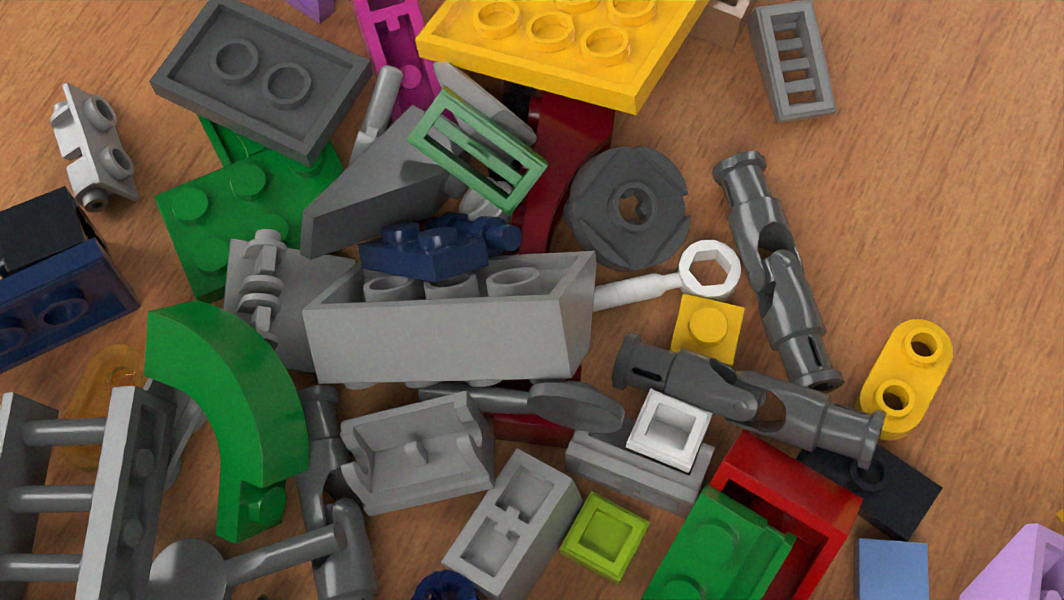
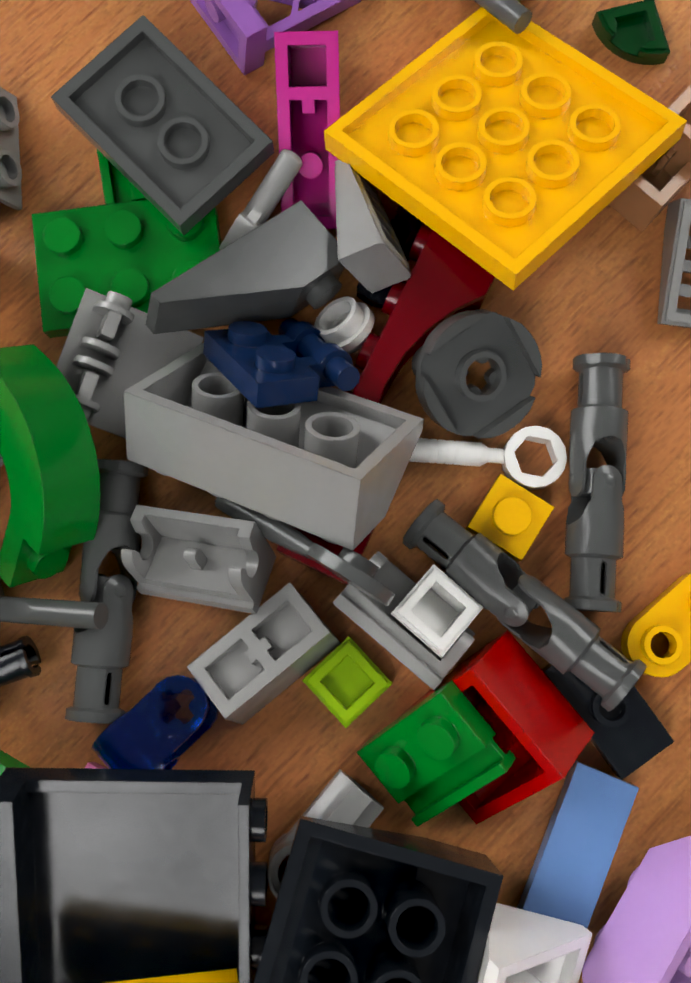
camera: 20 degrees right, 15 degrees up
(487, 127) = (363, 263): green tile -> none

